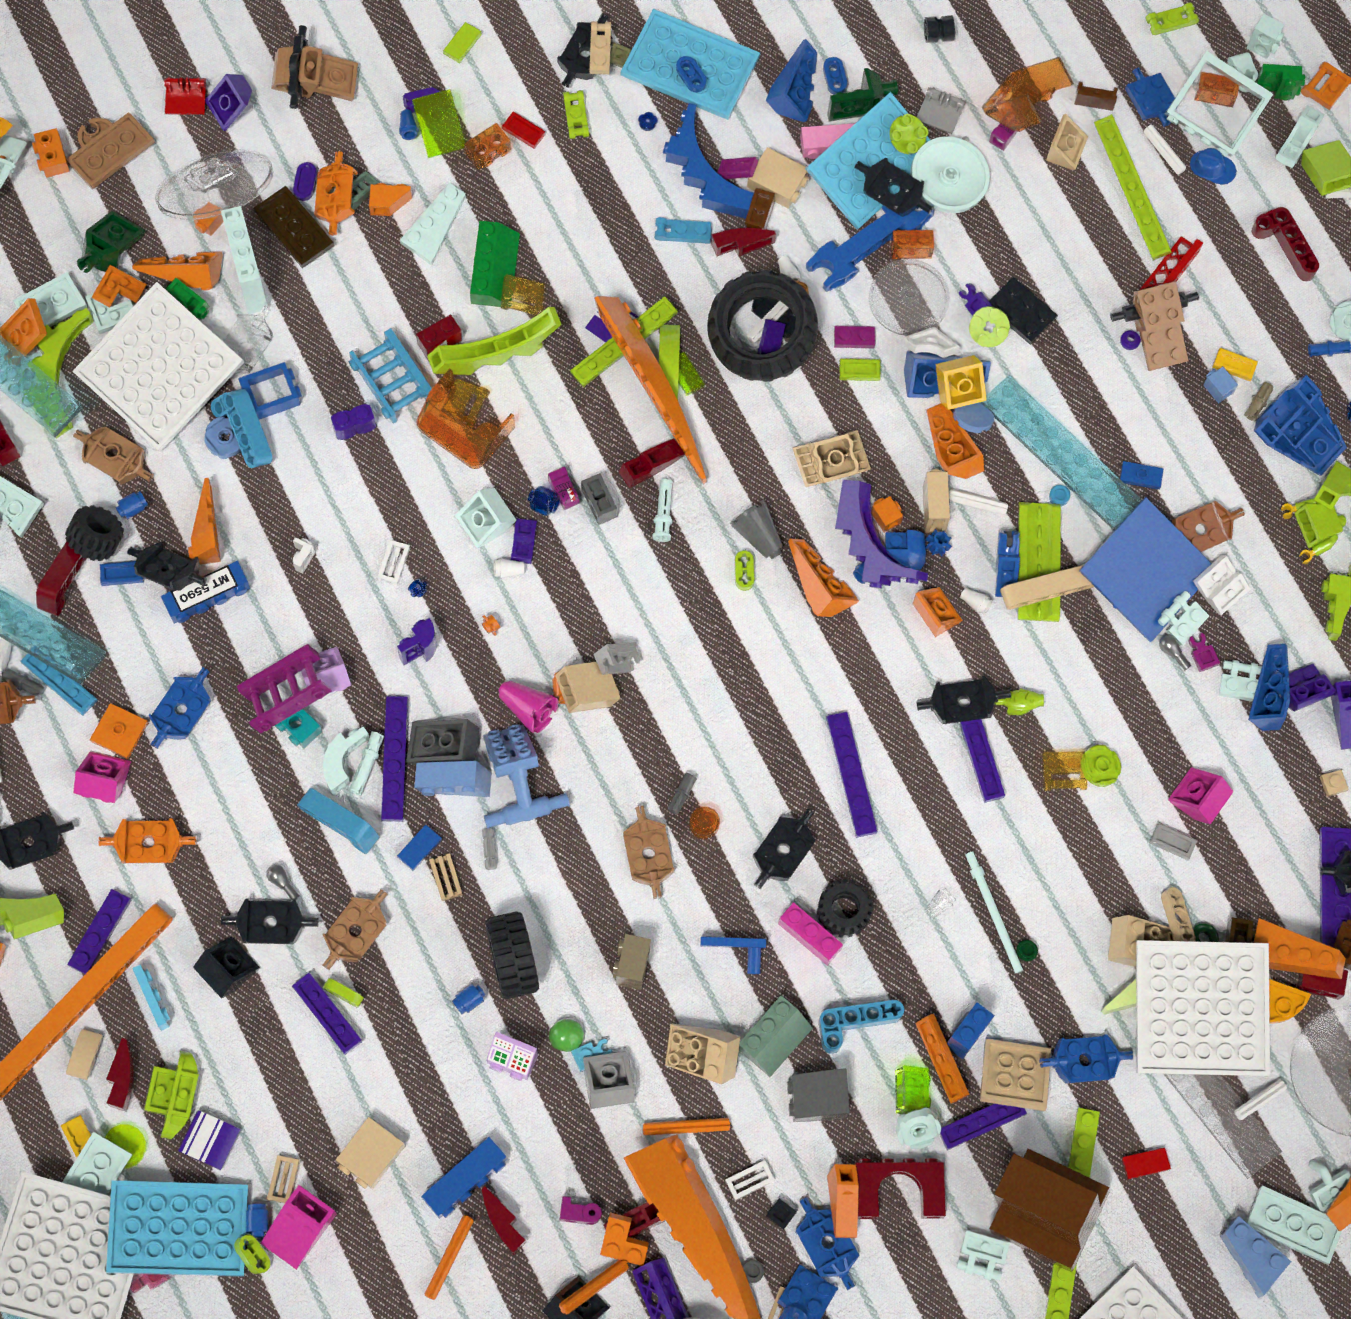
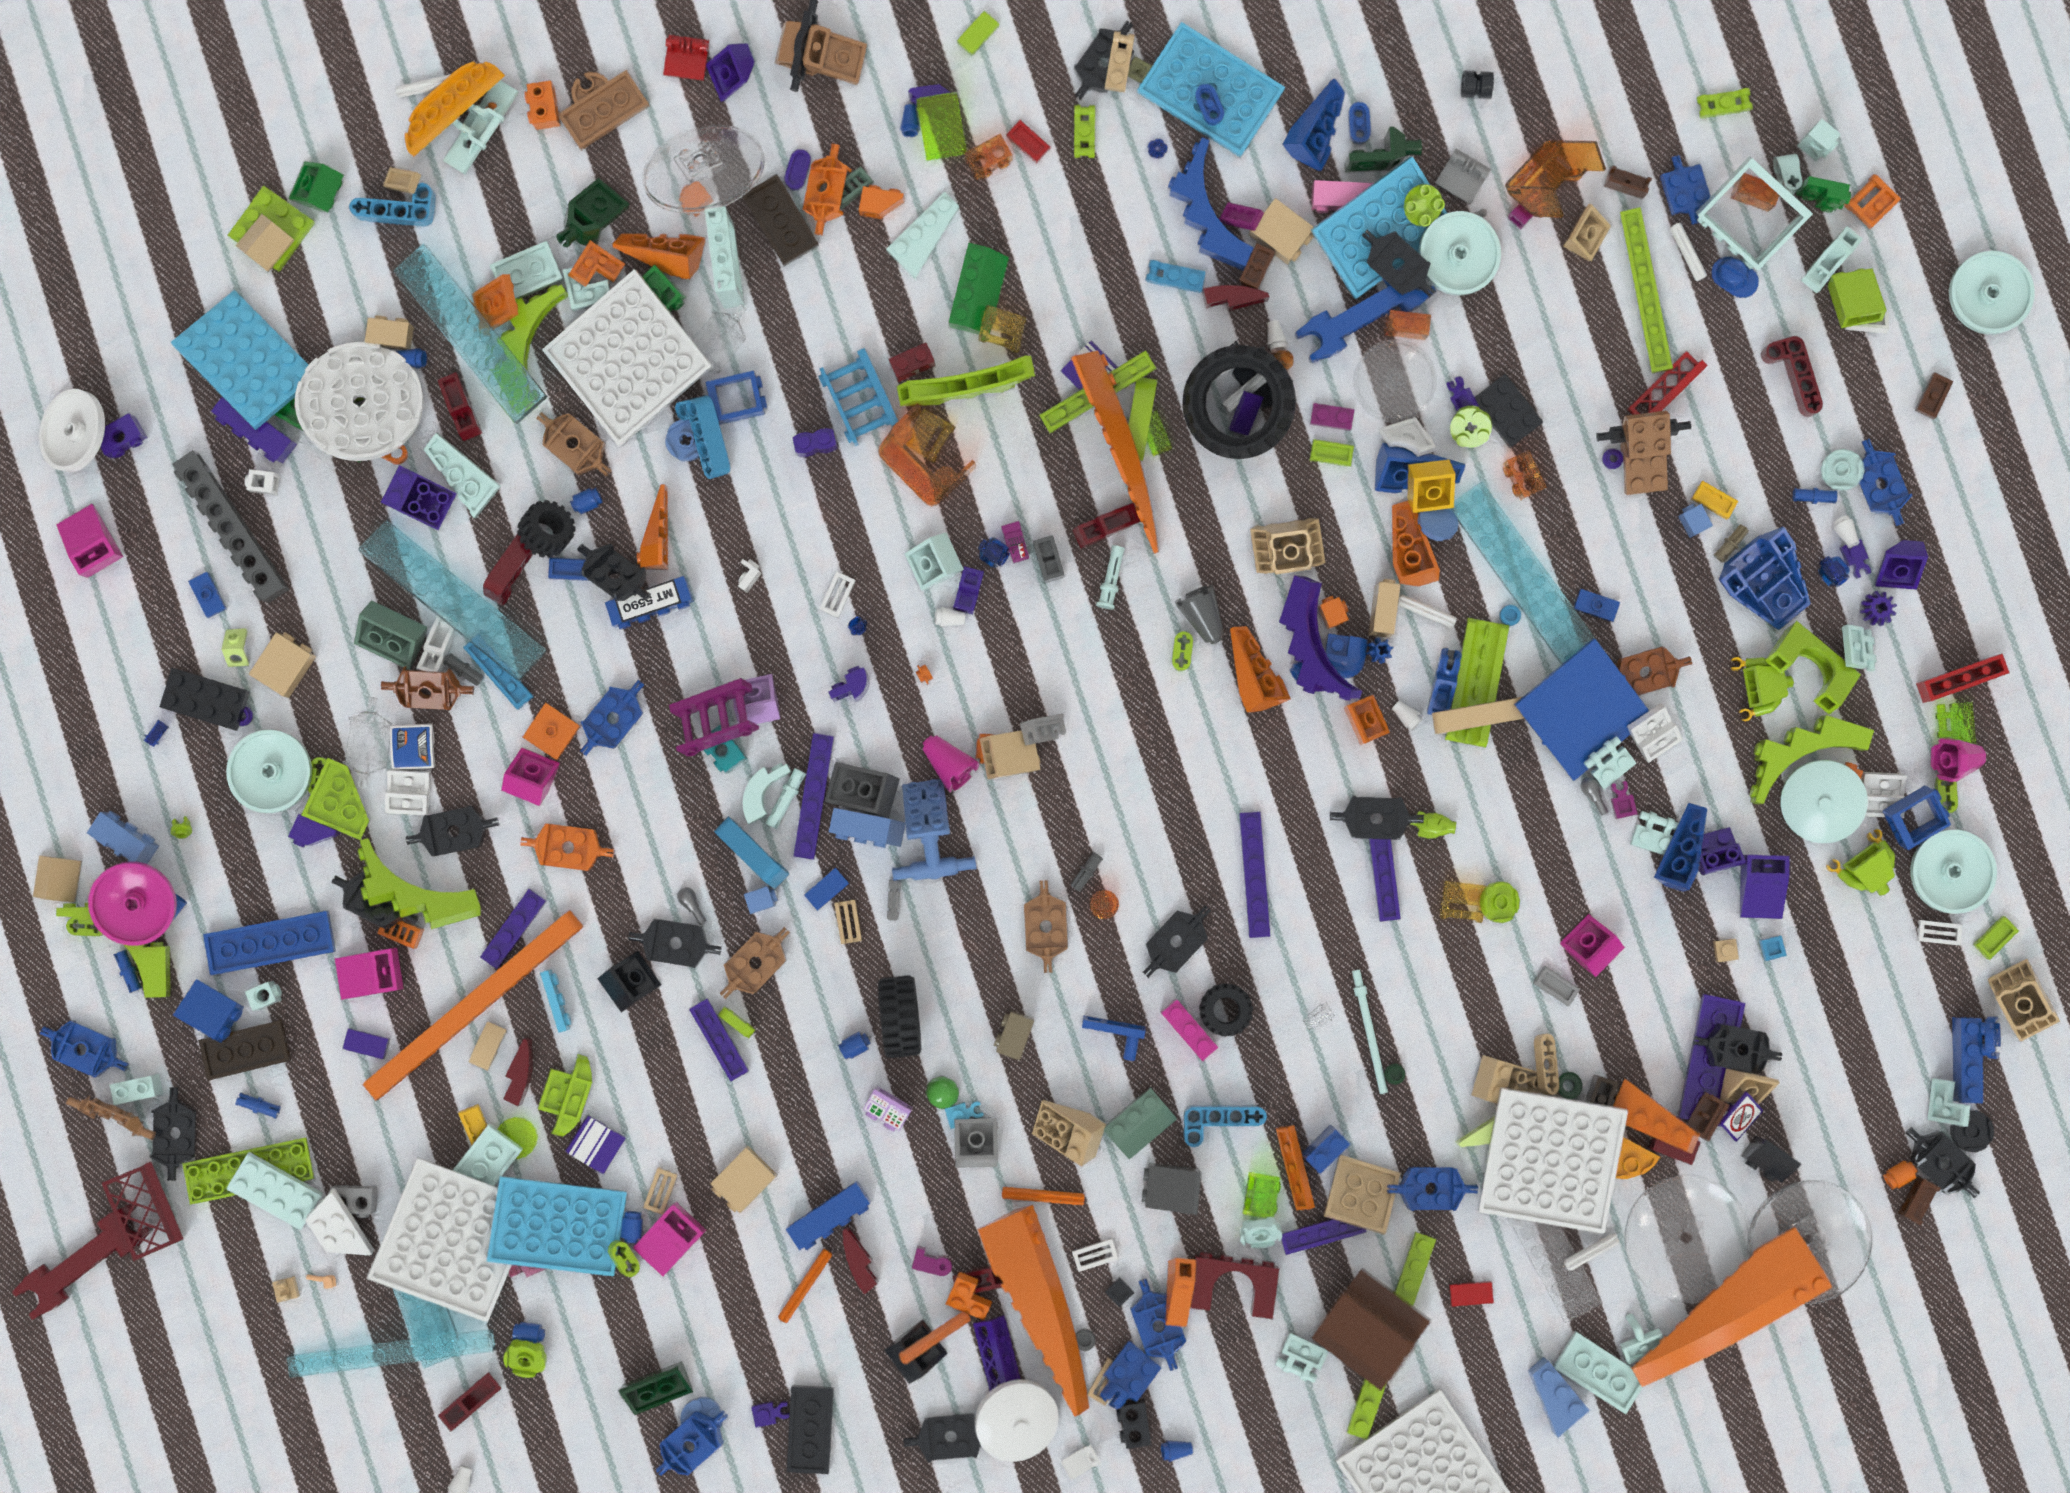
camera: 15 degrees right, 15 degrees up
(353, 865) = (761, 899): none -> medium blue brick
(1053, 362) = (1529, 473): none -> clear orange brick

